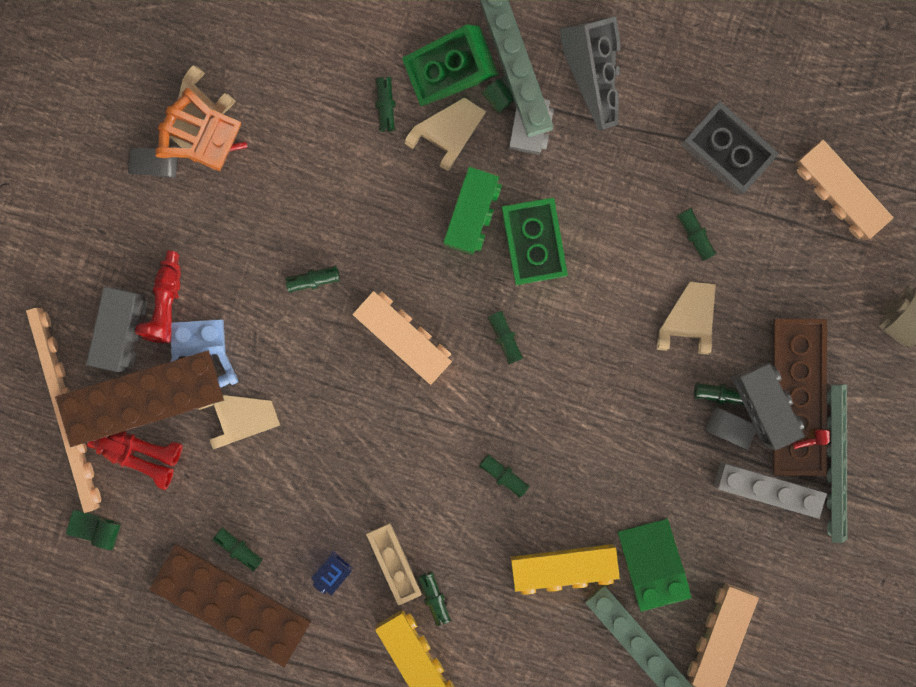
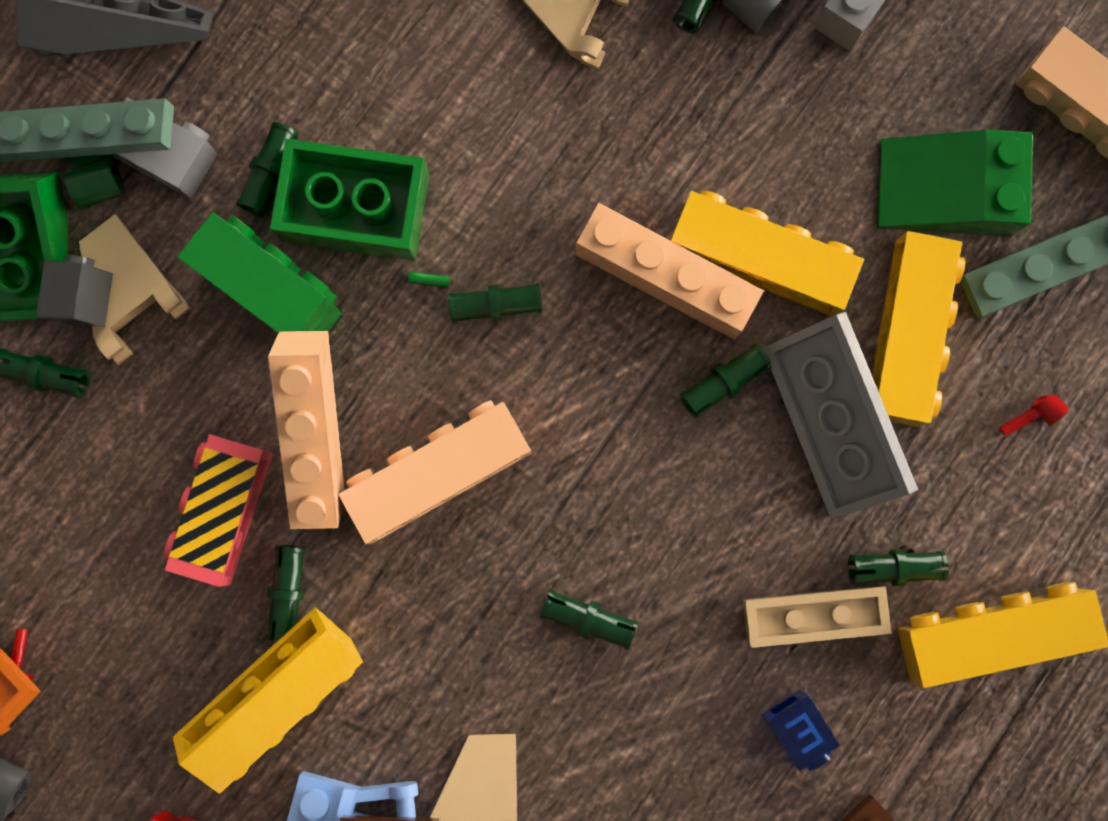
camera: 70 degrees left, 5 degrees down
(254, 290) = (266, 701): none -> yellow brick
(344, 227) = (217, 511): none -> brick
(352, 444) = (589, 619): none -> dark green pin
(401, 266) = (307, 428): none -> light nougat brick
(434, 110) = (74, 292): none -> dark grey brick
(503, 542) = (839, 417): none -> light grey plate
(507, 298) = (429, 279): none -> green piece
(538, 187) = (265, 170): none -> dark green pin
(547, 652) = (1048, 407): none -> red hand
(552, 426) = (667, 271): none -> light nougat brick
(579, 475) = (767, 254): none -> yellow brick

